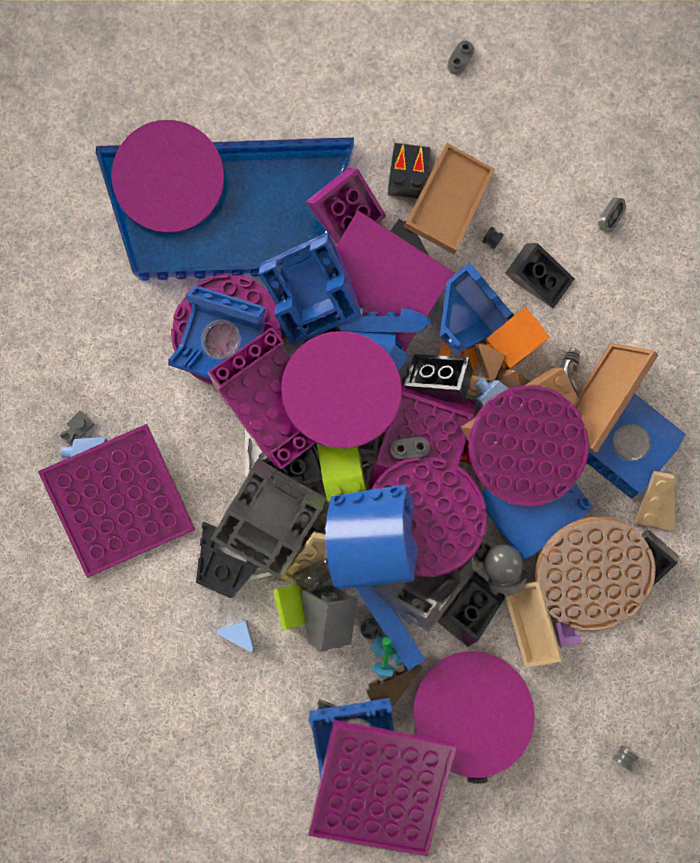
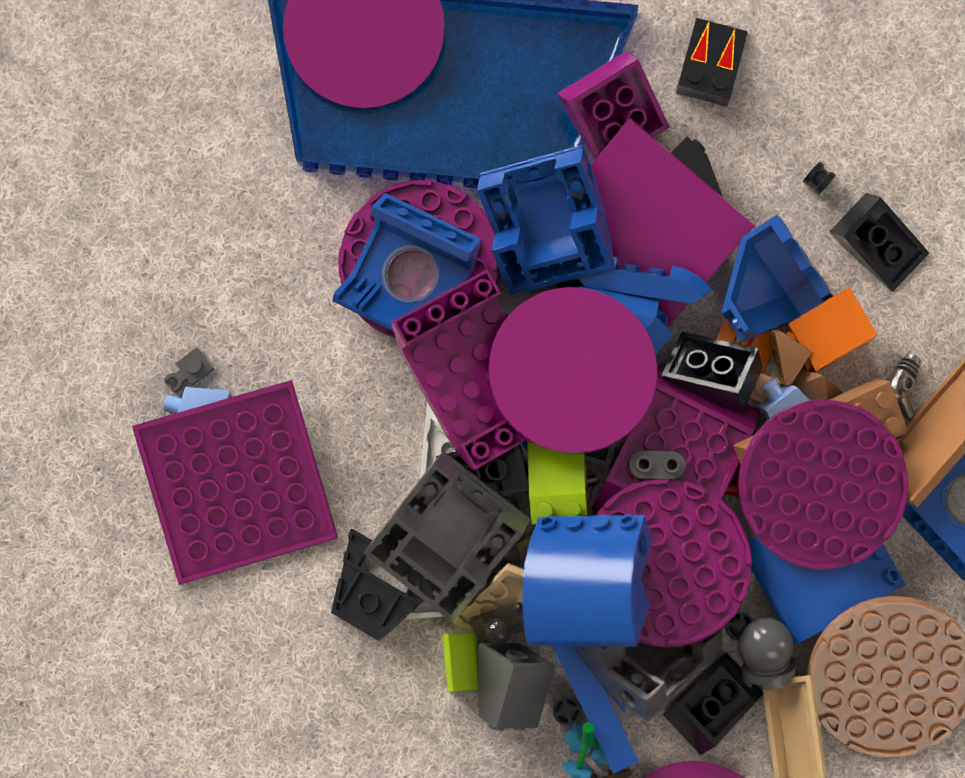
camera: 10 degrees right, 0 degrees up
(238, 634) = (382, 692): light blue slope -> none
(449, 198) = (764, 113): medium nougat tile -> none
(565, 635) = (840, 757): medium lavender panel -> none

